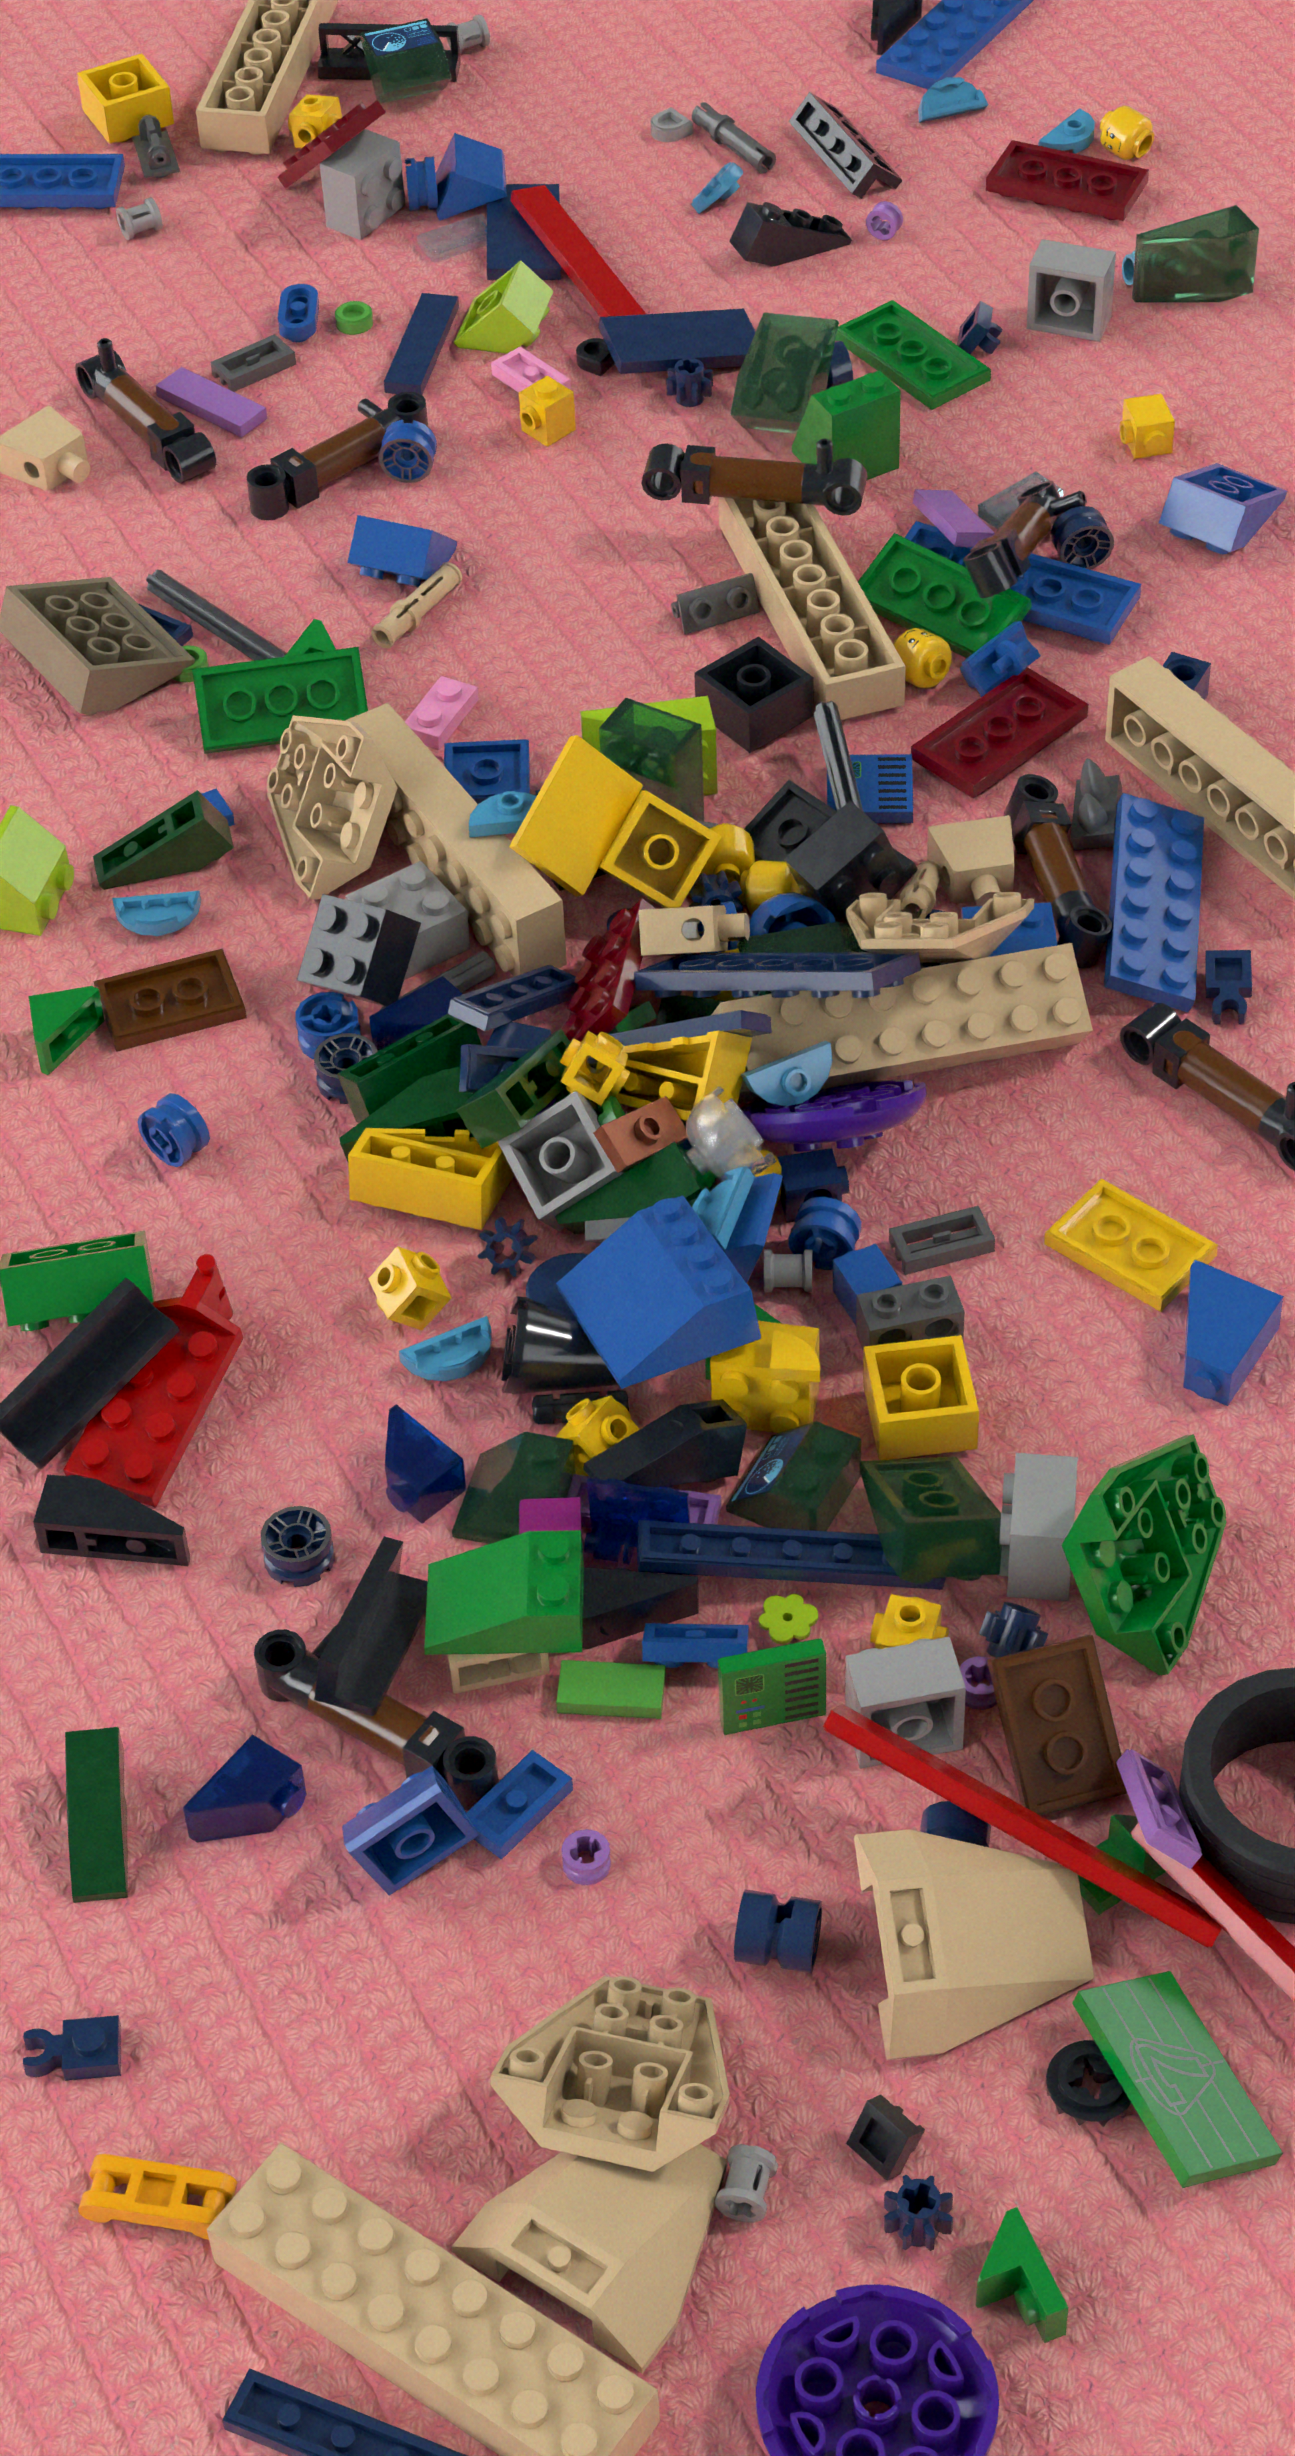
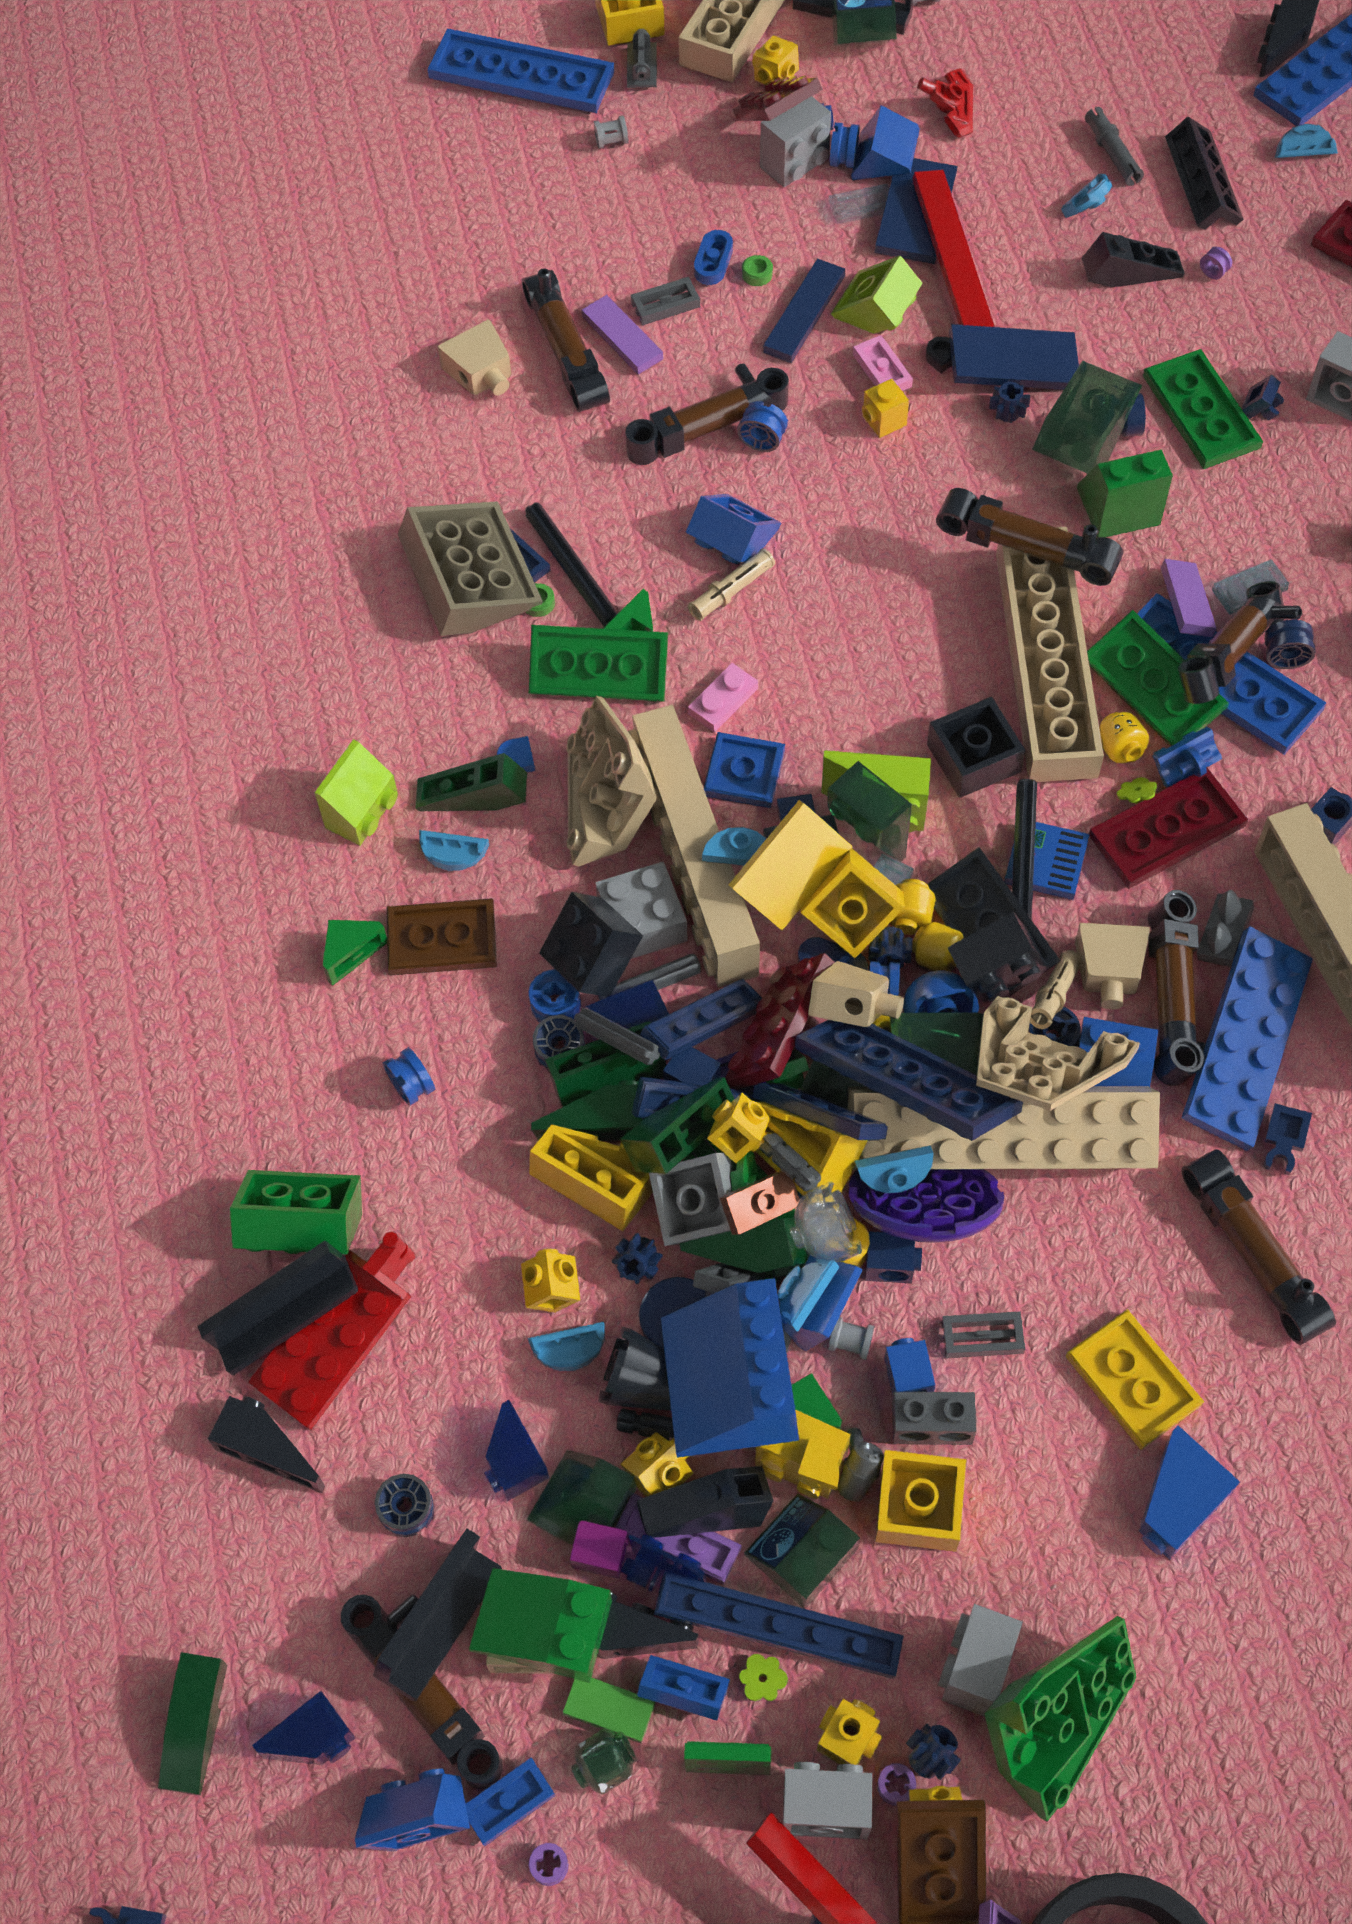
camera: 15 degrees right, 15 degrees up
(418, 1025) = (617, 1036): none -> dark grey axle
(532, 124) = (952, 97): none -> red piece
(622, 1734) = (603, 1761): none -> clear green head
(665, 1085) = (790, 1162): none -> dark grey axle
(670, 126) = (1065, 120): light grey tile -> none
(716, 603) = (972, 639): dark grey hinge -> none
(826, 1228) = (889, 1312): blue wheel -> none
(839, 1385) = (860, 1467): none -> dark grey piece
(933, 1519) = (897, 1623): clear green slope -> none
(953, 705) = (1137, 790): none -> lime plant

